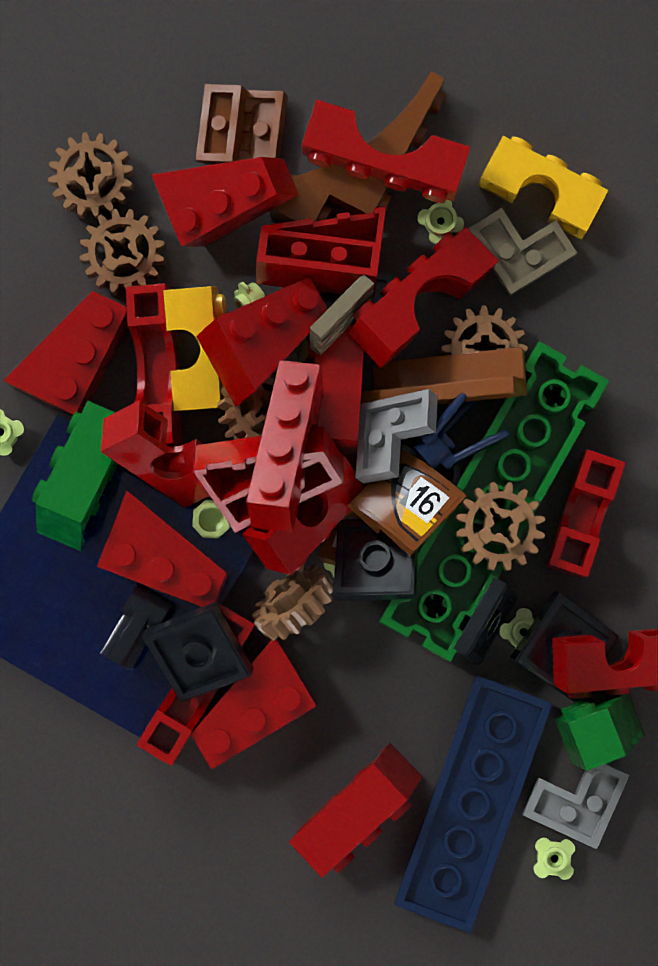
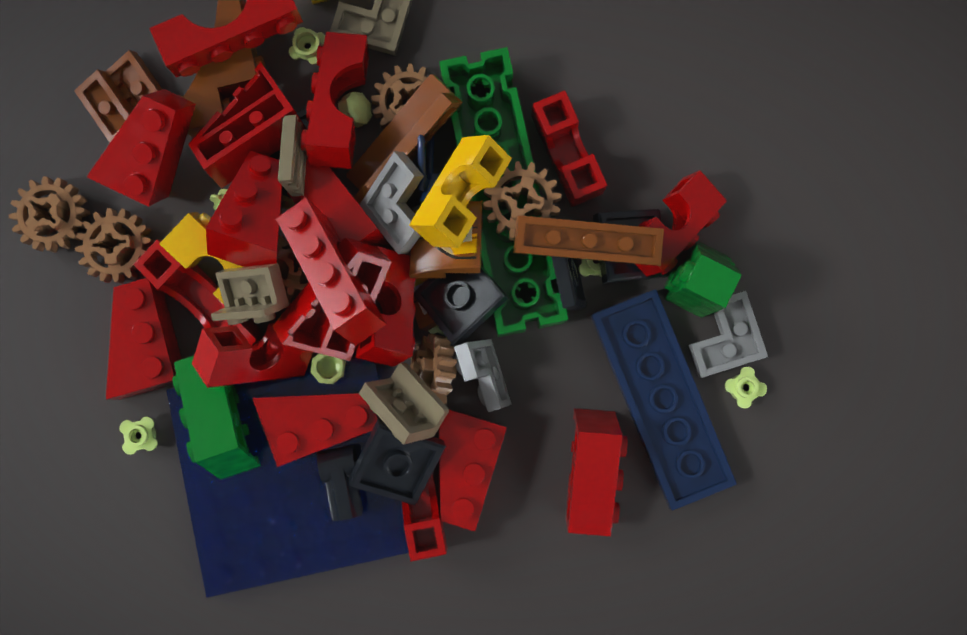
camera: 45 degrees left, 0 degrees up
(202, 403) = (250, 293): none -> dark tan bracket
(249, 611) = (405, 405): none -> dark tan bracket
(344, 631) = (480, 362): none -> light grey plate
(432, 314) = (357, 107): none -> yellowish green tile
(480, 461) = (472, 167): none -> yellow arch
(525, 611) = (588, 240): none -> dark orange plate

